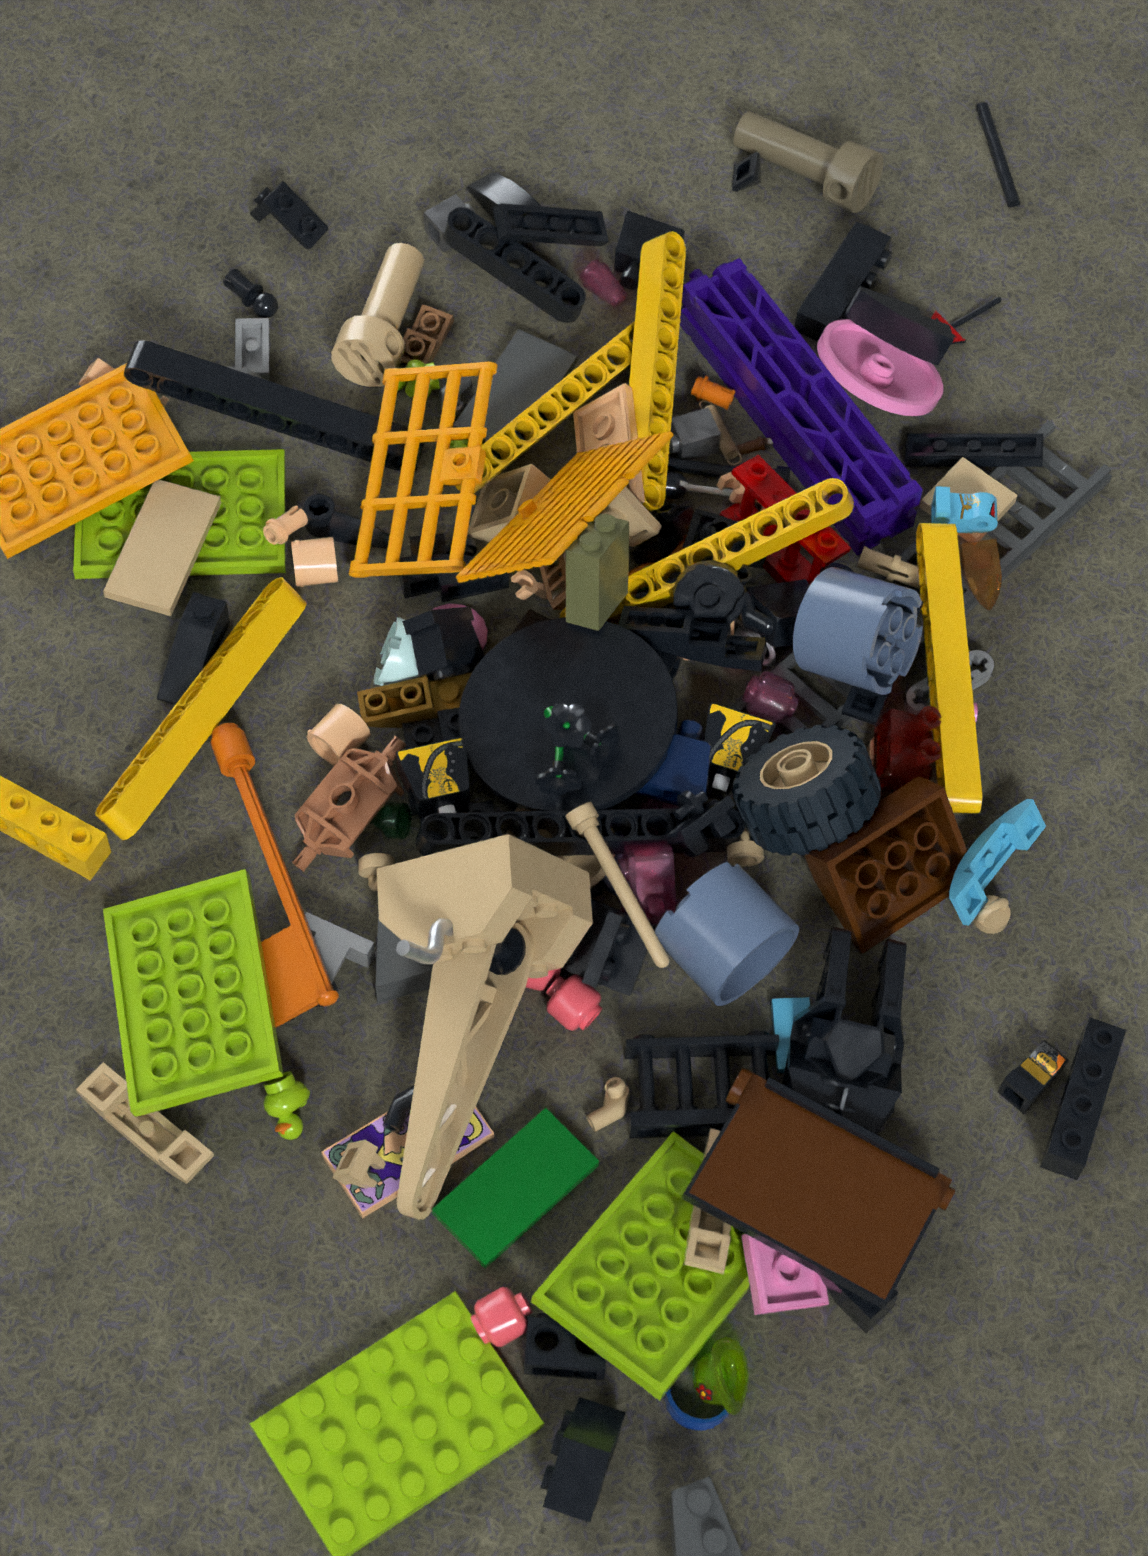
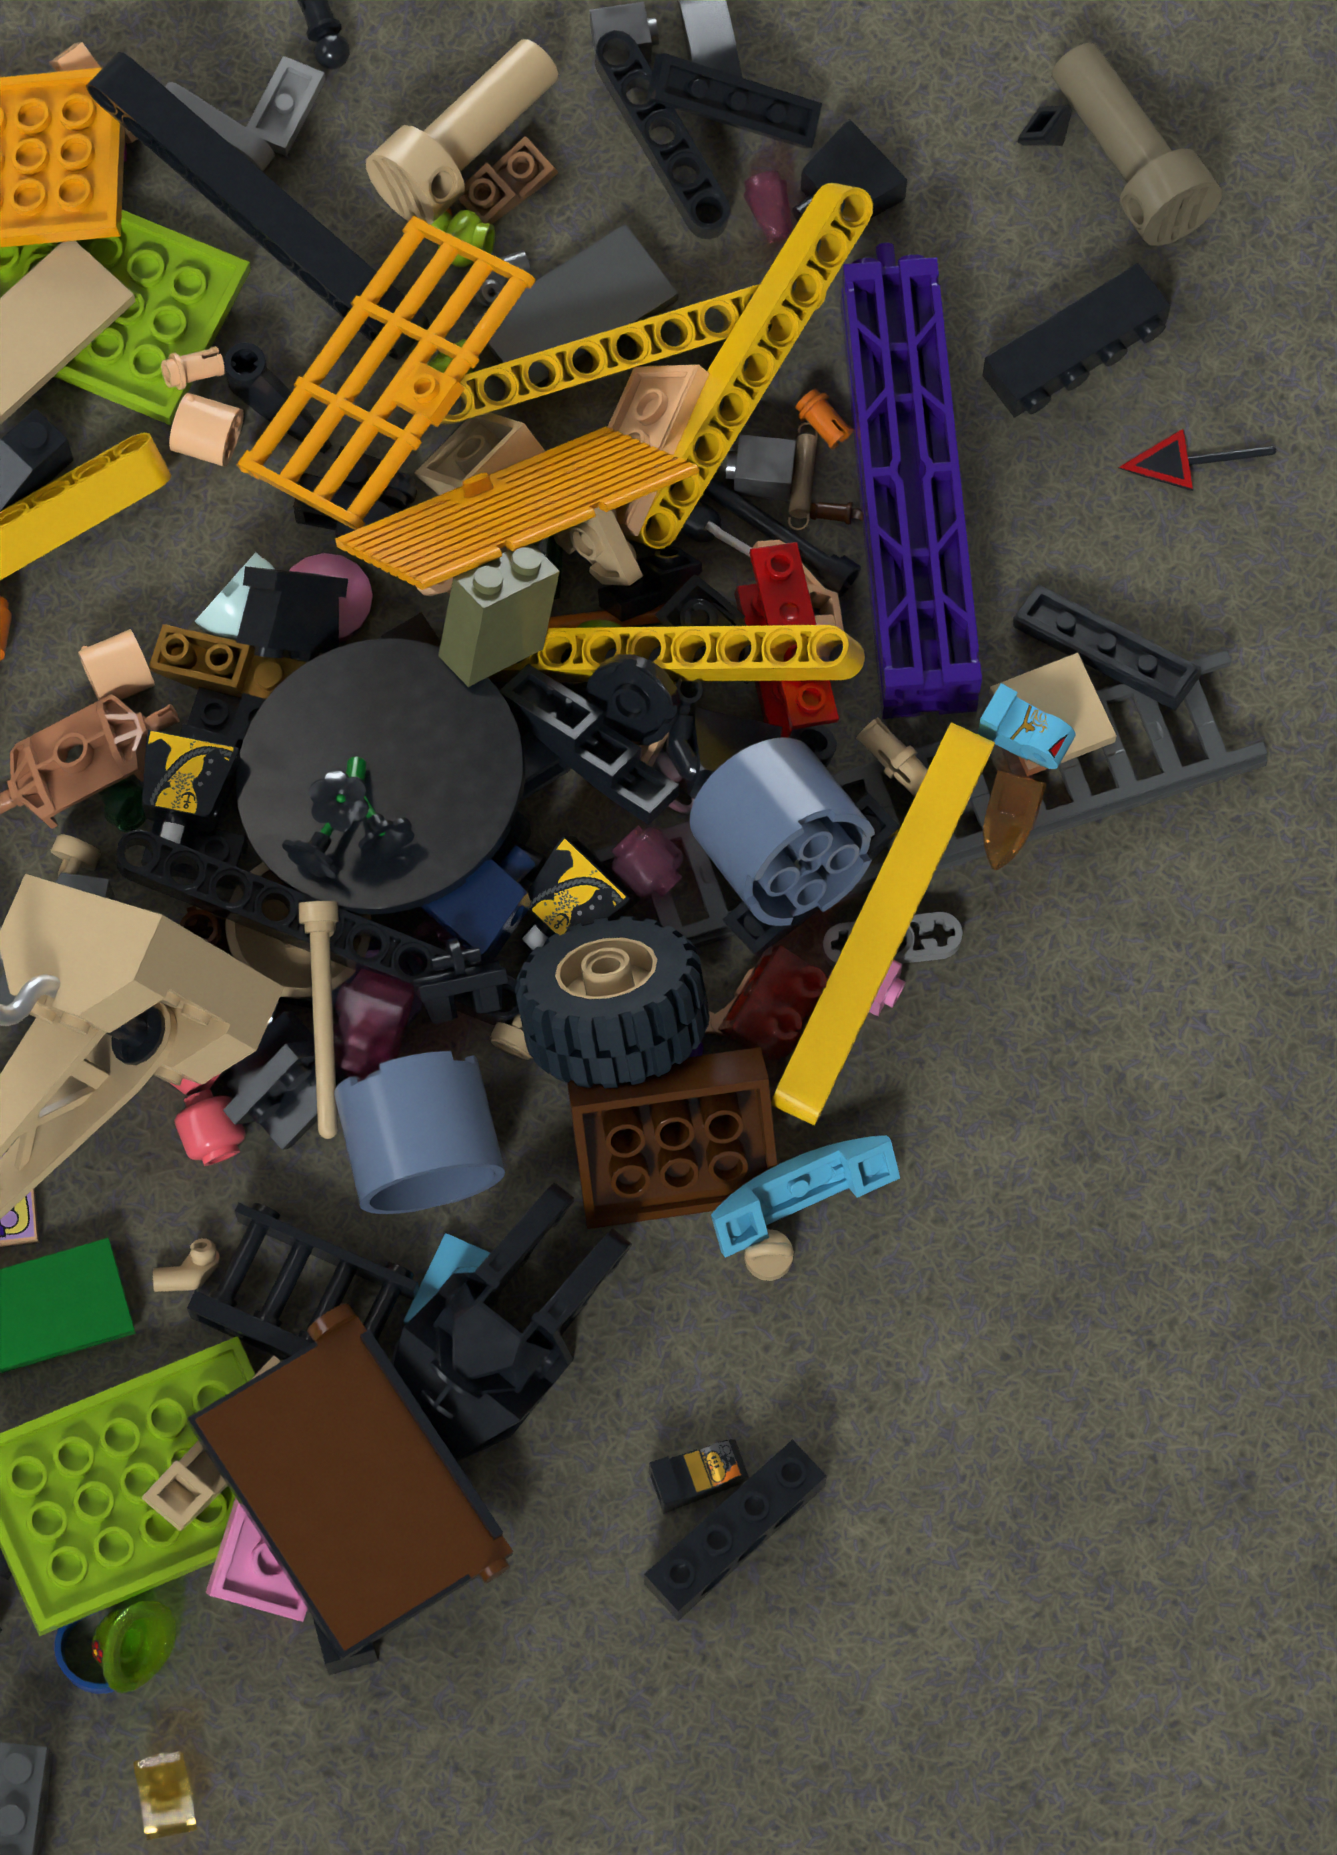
camera: 30 degrees right, 10 degrees up
(806, 1472) = (165, 1795): none -> clear yellow bracket
(879, 370) = (1043, 483): bright pink dish -> none
(900, 325) = (1108, 436): black slope -> none

